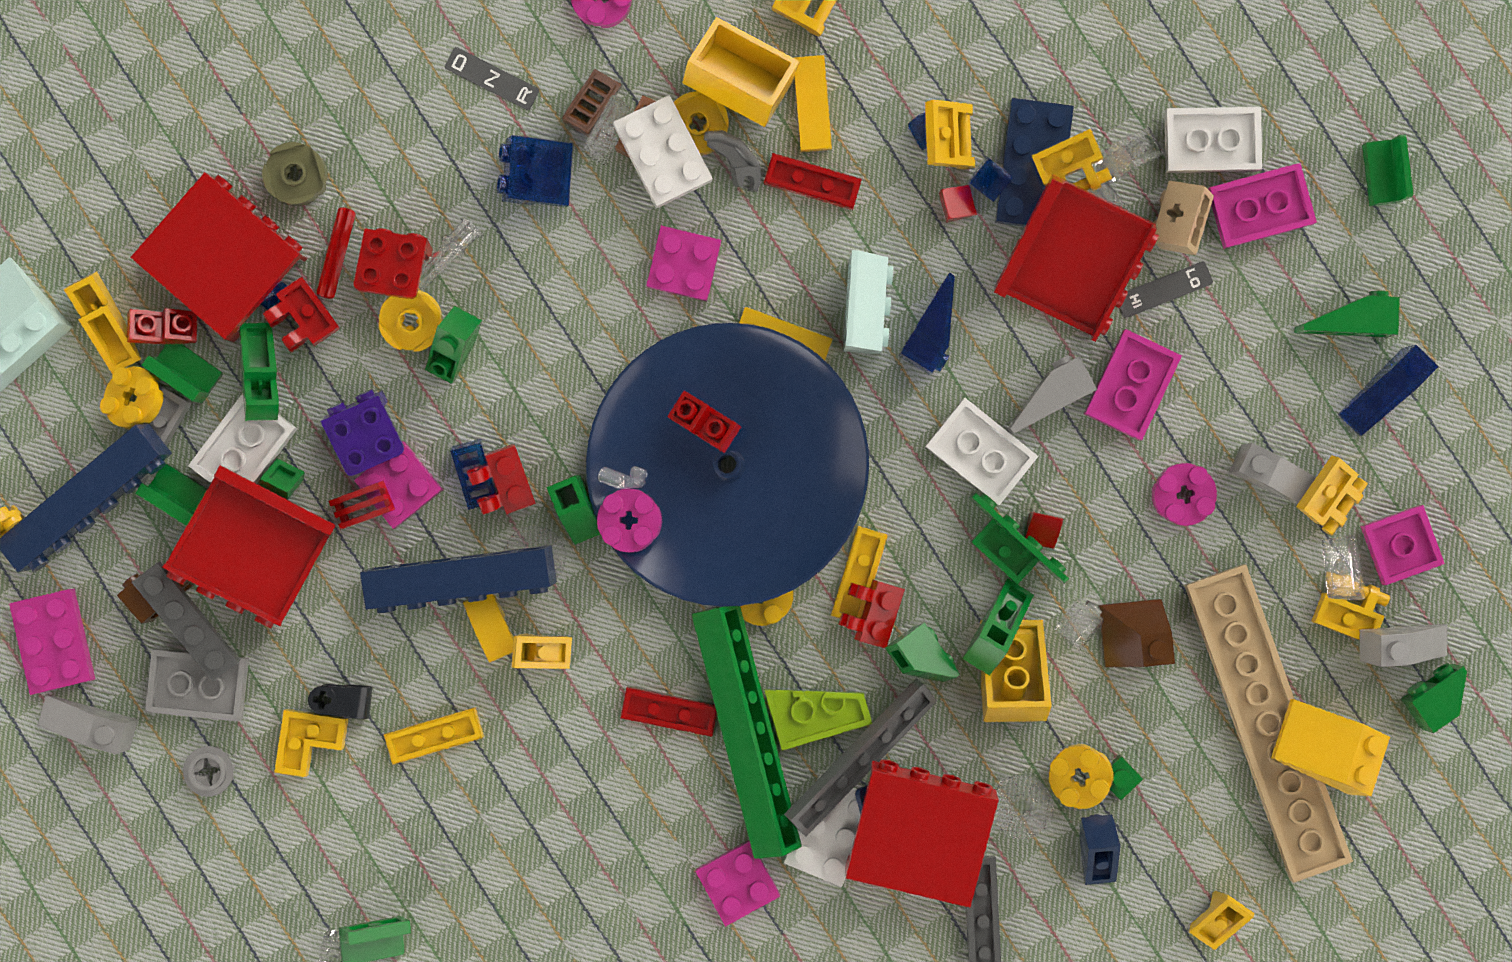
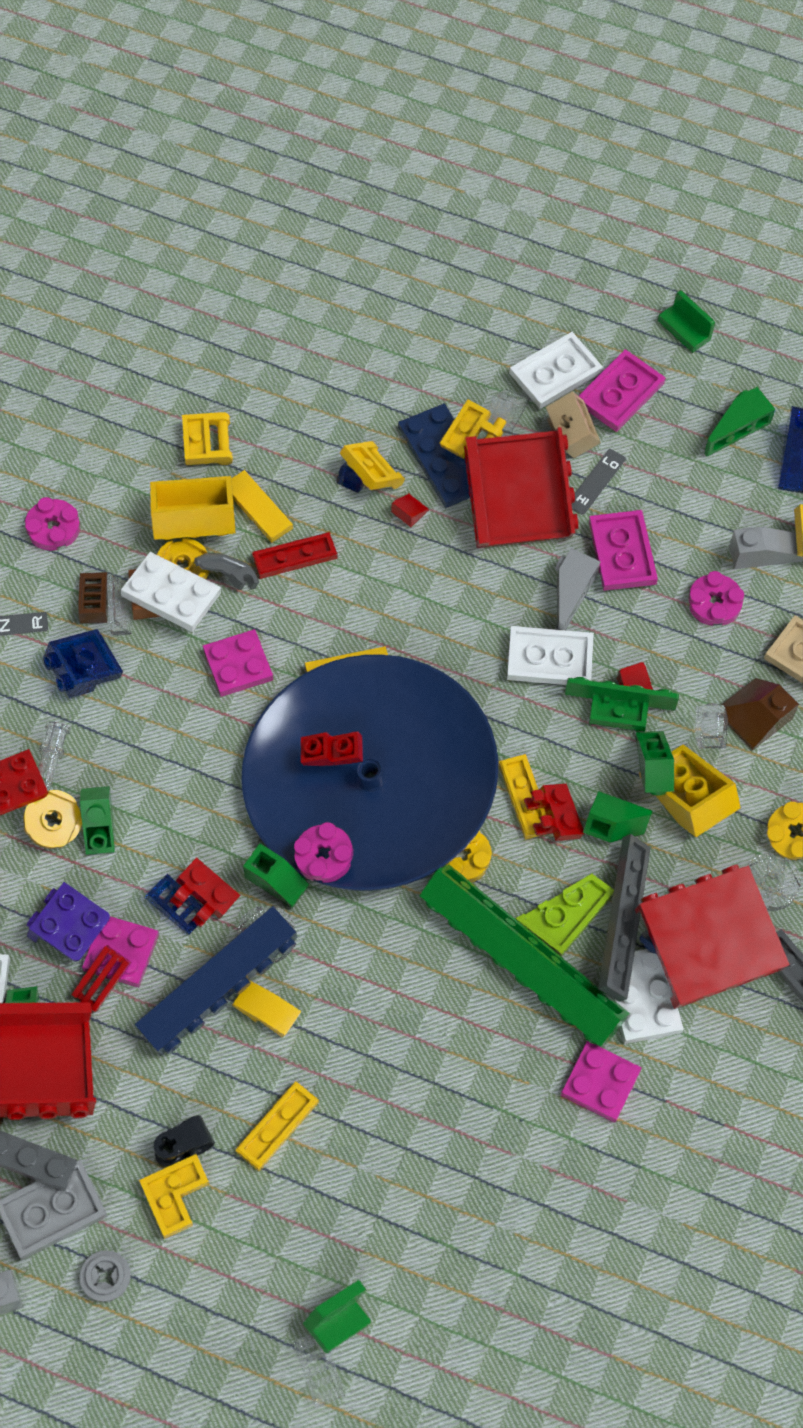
camera: 35 degrees left, 25 degrees down
(541, 651) = (321, 998): yellow slope -> none
(621, 480) = (297, 827): clear arm -> none
(669, 711) = (453, 986): red tile -> none
(867, 303) = (392, 606): light aqua slope -> none
(932, 334) = (455, 598): clear blue slope -> none
(990, 179) = (421, 478): clear blue slope -> none

